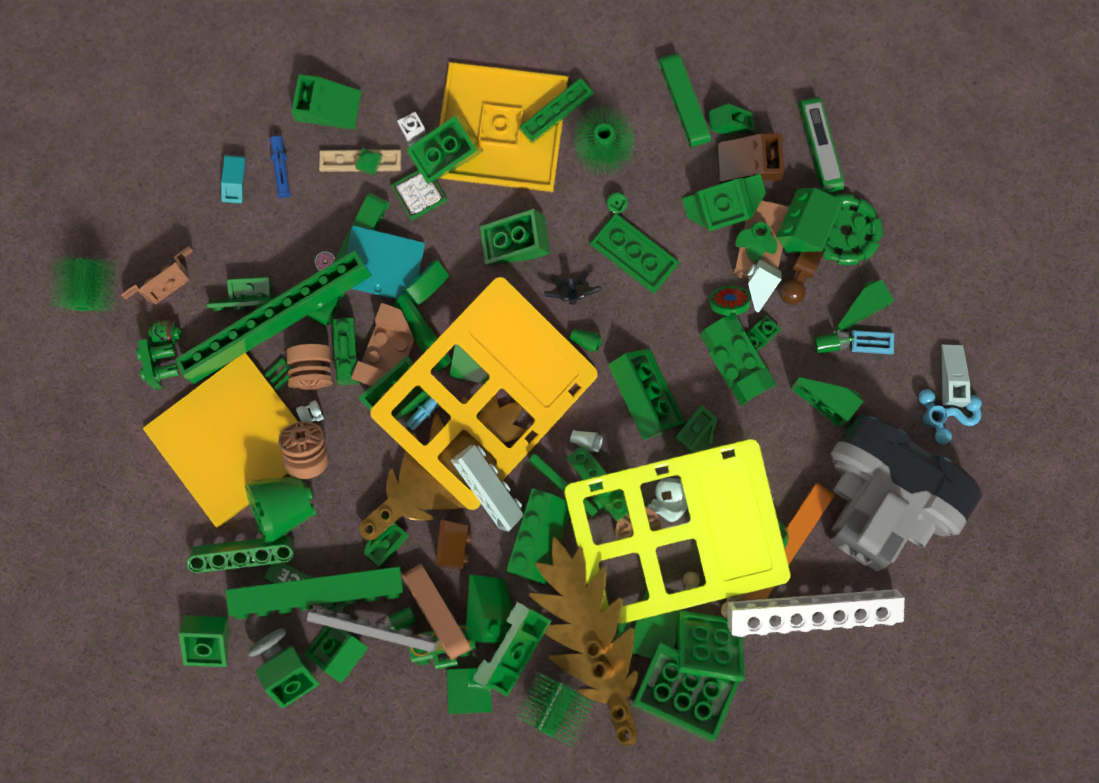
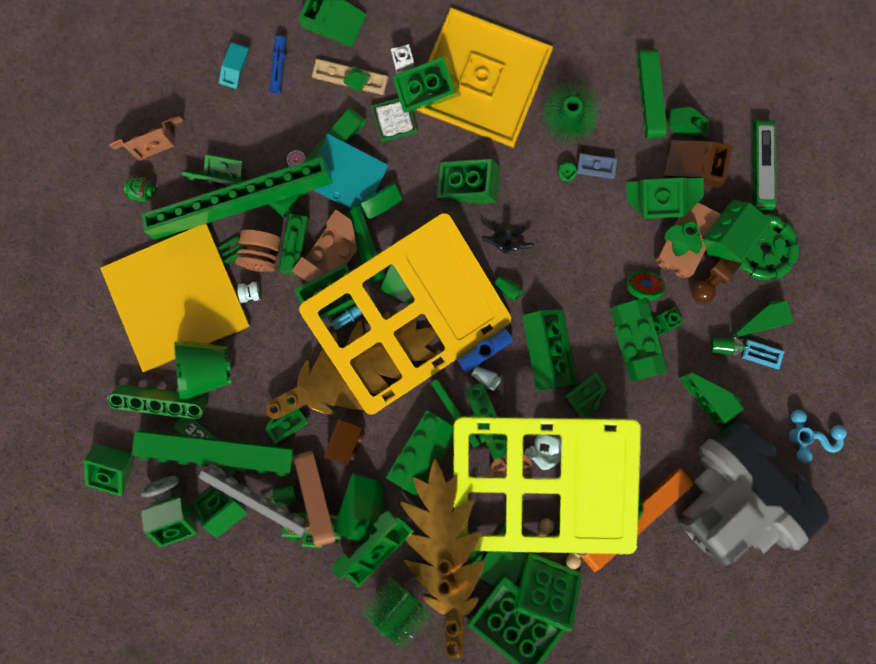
camera: 10 degrees right, 5 degrees up
(83, 286) = (76, 127): green piece -> none
(149, 356) = (118, 217): green plate -> none
(303, 450) = (232, 325): nougat wheel -> none
(466, 694) = (320, 575): green slope -> none
(487, 487) = (387, 399): light aqua slope -> none
(556, 110) = (534, 74): green tile -> none
(586, 401) = (495, 343): none -> blue piece
(634, 253) = (571, 221): green tile -> none
(646, 189) = (596, 166): none -> sand blue plate
(762, 282) = (679, 277): light aqua slope -> none
(890, 614) = (649, 585): white brick -> none
(954, 377) = (829, 405): light aqua slope -> none

